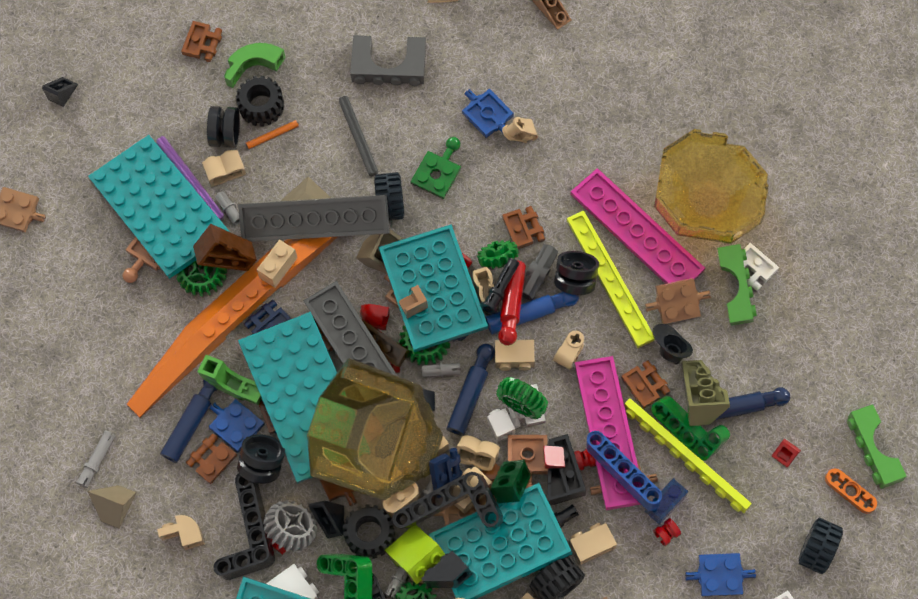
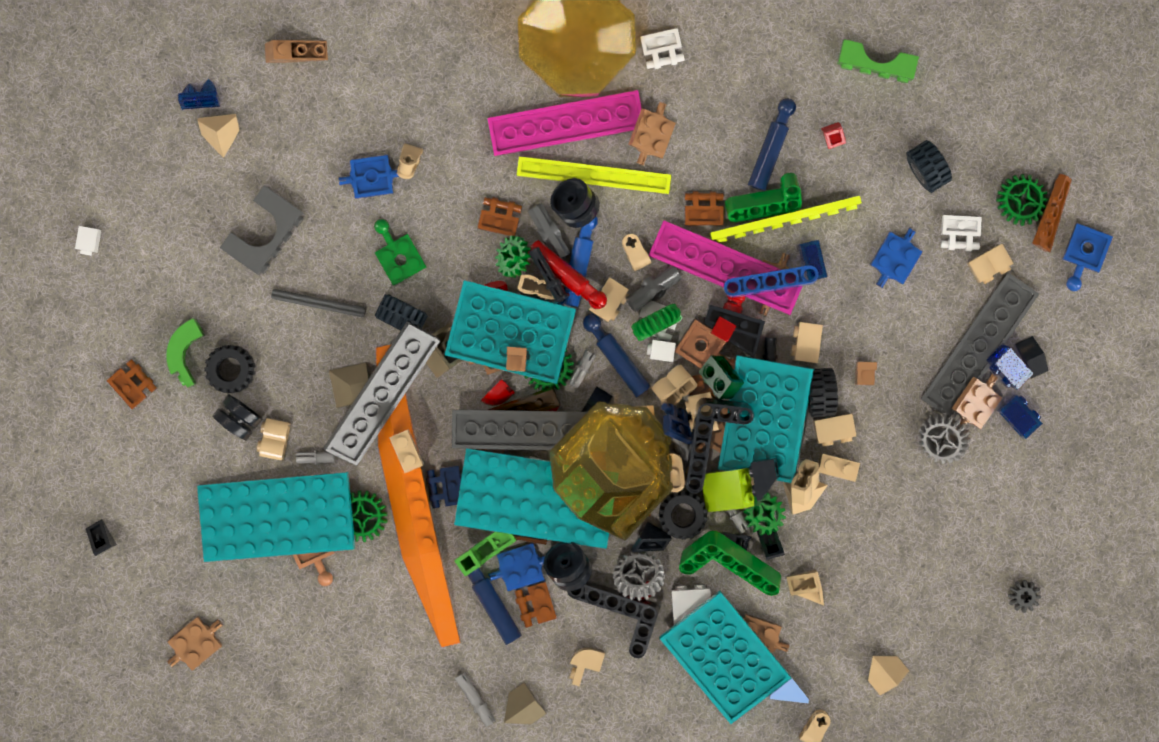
camera: 55 degrees left, 20 degrees up
(166, 147) = (261, 474): medium lavender axle -> none
(224, 250) = (362, 488): reddish brown wedge -> none
(272, 134) = (267, 377): orange bar -> none
(549, 383) = (653, 288): none -> dark grey piece
(667, 531) = (834, 273): red wheel -> none
(672, 344) = (685, 164): black piece -> none
(703, 394) = (750, 171): olive wedge -> none
(740, 308) = (648, 65): bright green arch -> none
(866, 495) = (913, 108): orange beam -> none

